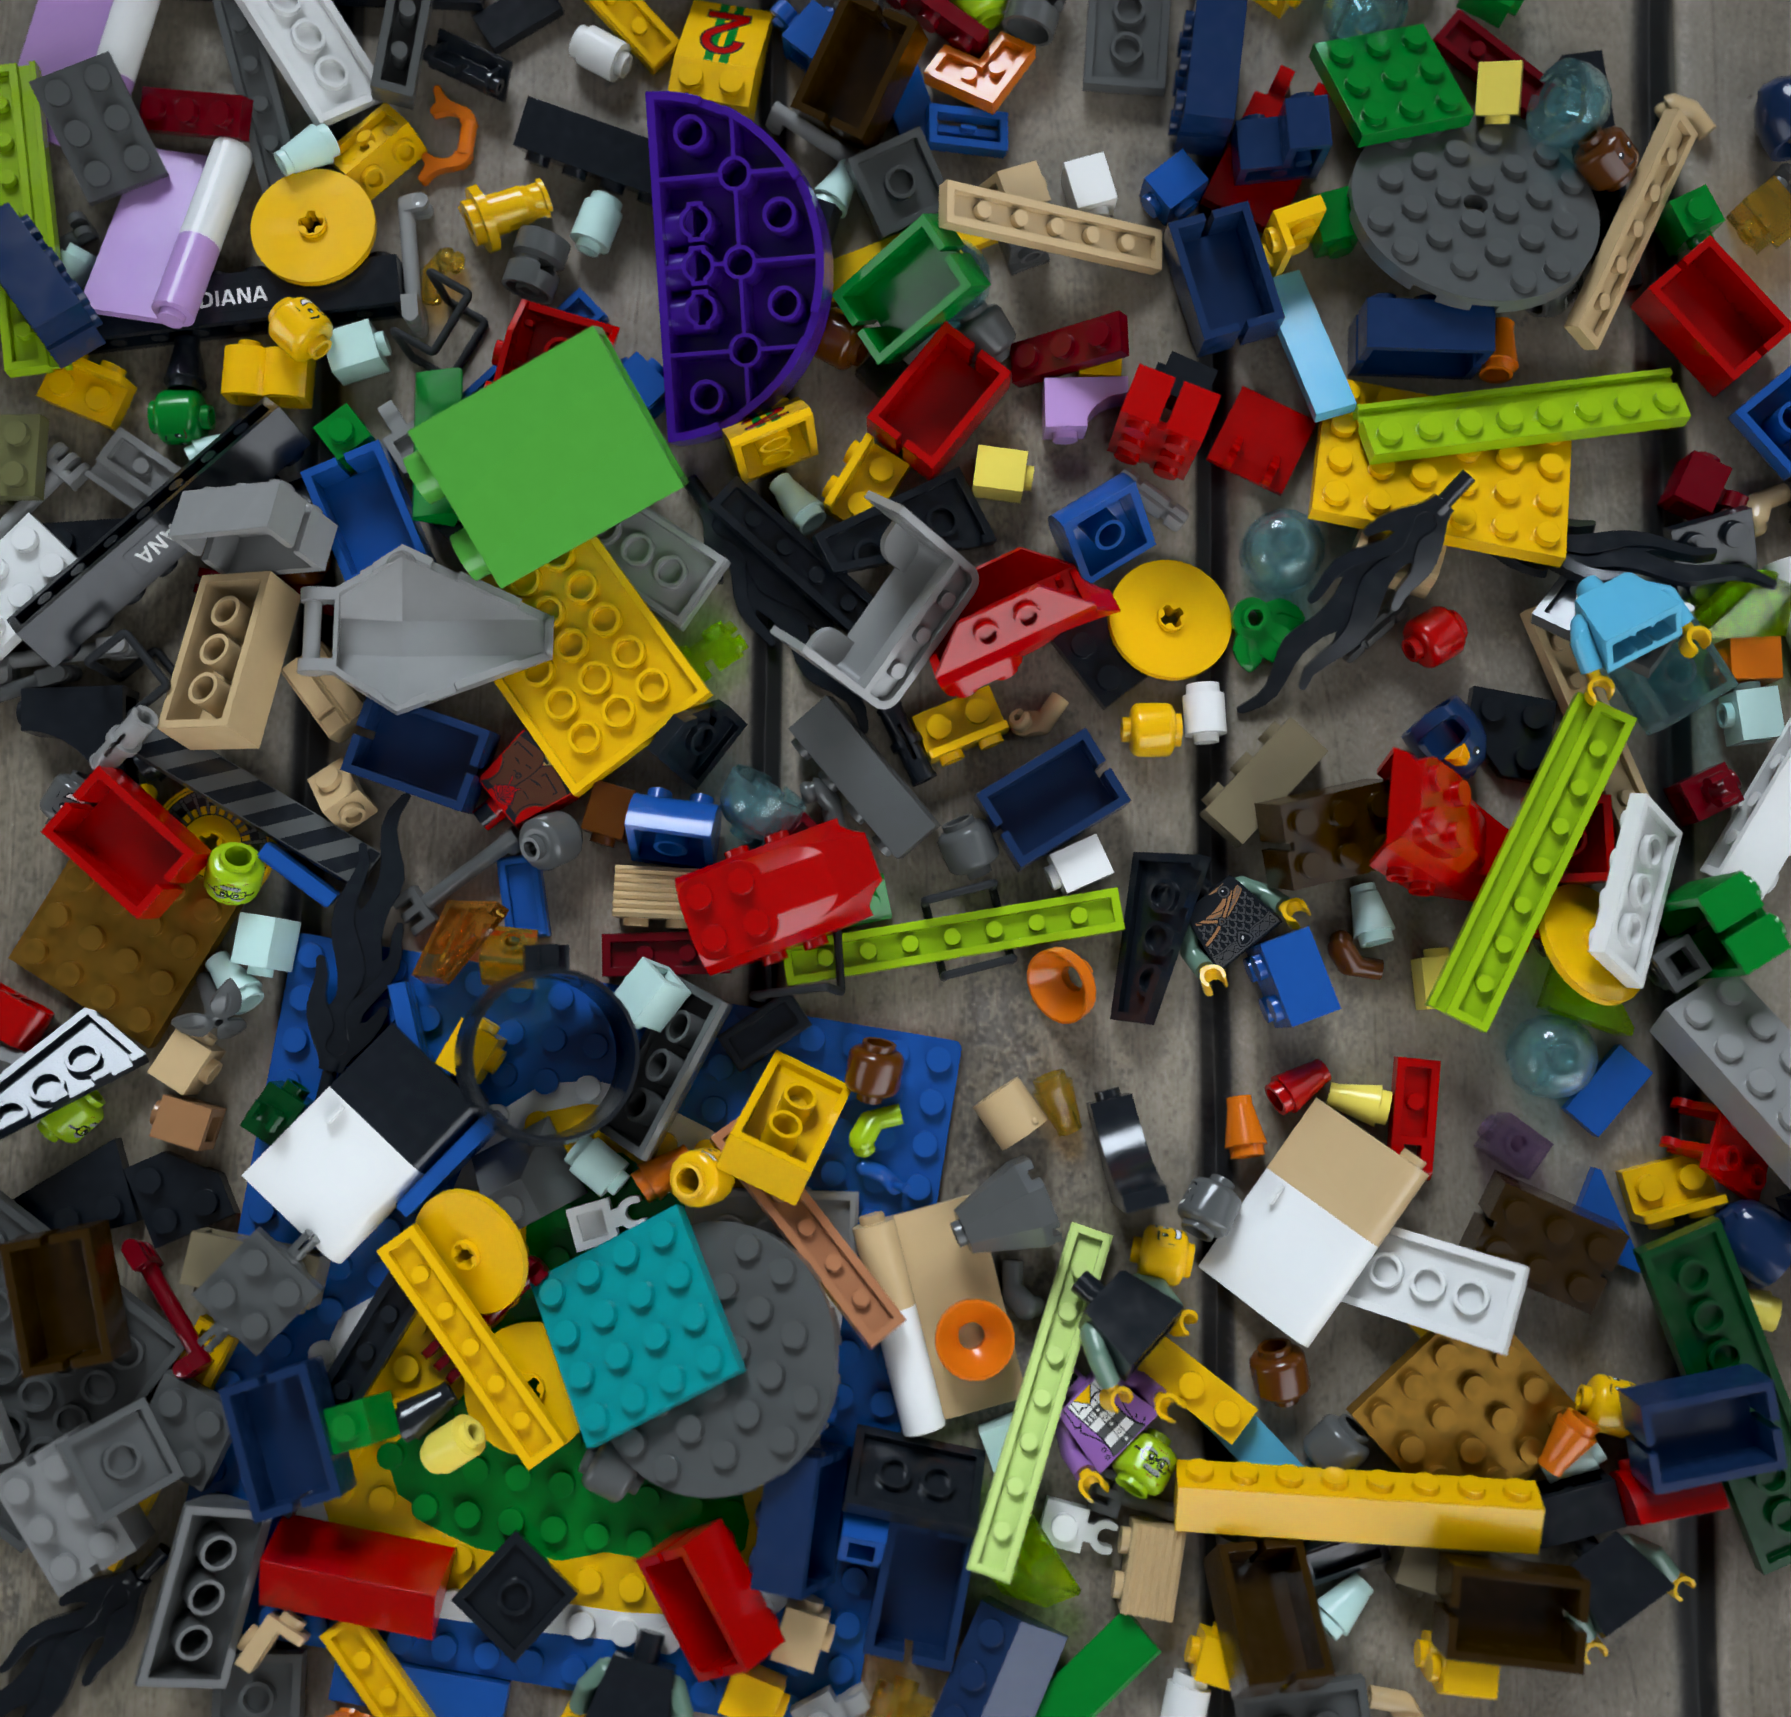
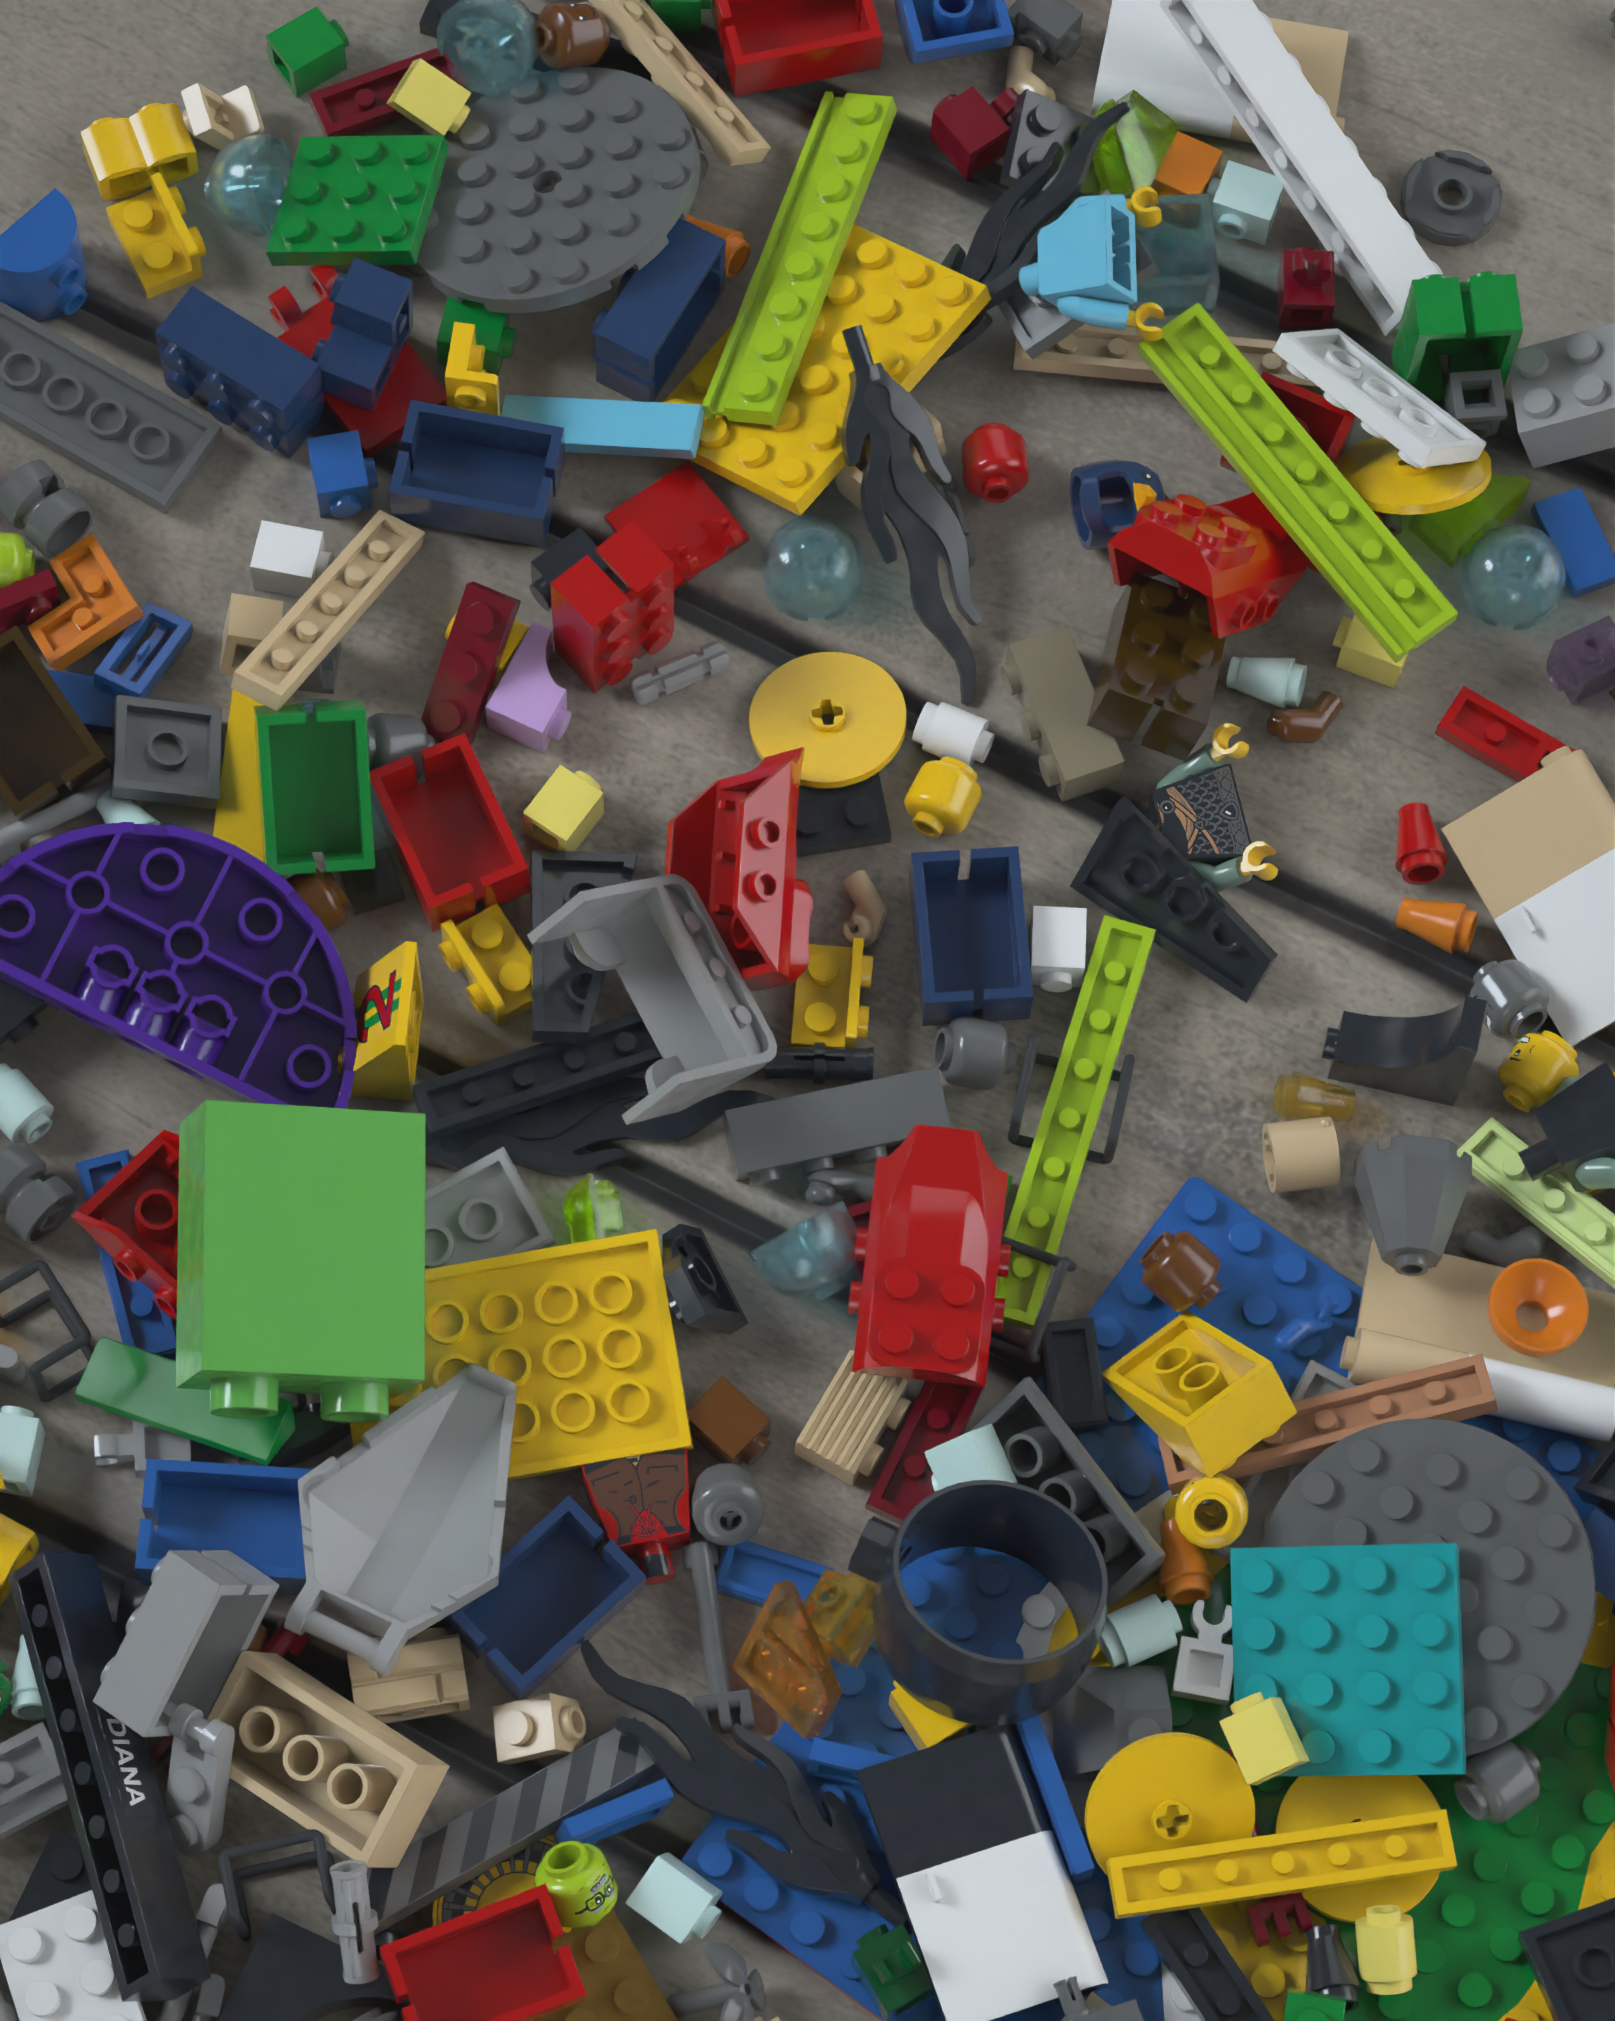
camera: 70 degrees left, 15 degrees down
(182, 588) = (197, 1779): none -> light grey plate
(249, 986) = (690, 1966): light aqua cone -> none
(343, 432) = (111, 1508): green brick -> none
(546, 1294) = (1263, 1738): none -> light yellow brick
(673, 829) = (789, 1358): blue brick -> none
(798, 504) = (473, 1044): light aqua cone -> none
(869, 1126) = (1241, 1311): lime arm -> none
(1053, 989) = (1186, 1046): orange piece -> none
(1103, 528) = (686, 732): blue brick -> none
(1262, 640) = (897, 628): green plate -> none
(1291, 979) = (1299, 785): blue brick -> none
(1360, 1101) = (1470, 785): light yellow cone -> none
(1516, 730) = (1142, 431): black plate -> none

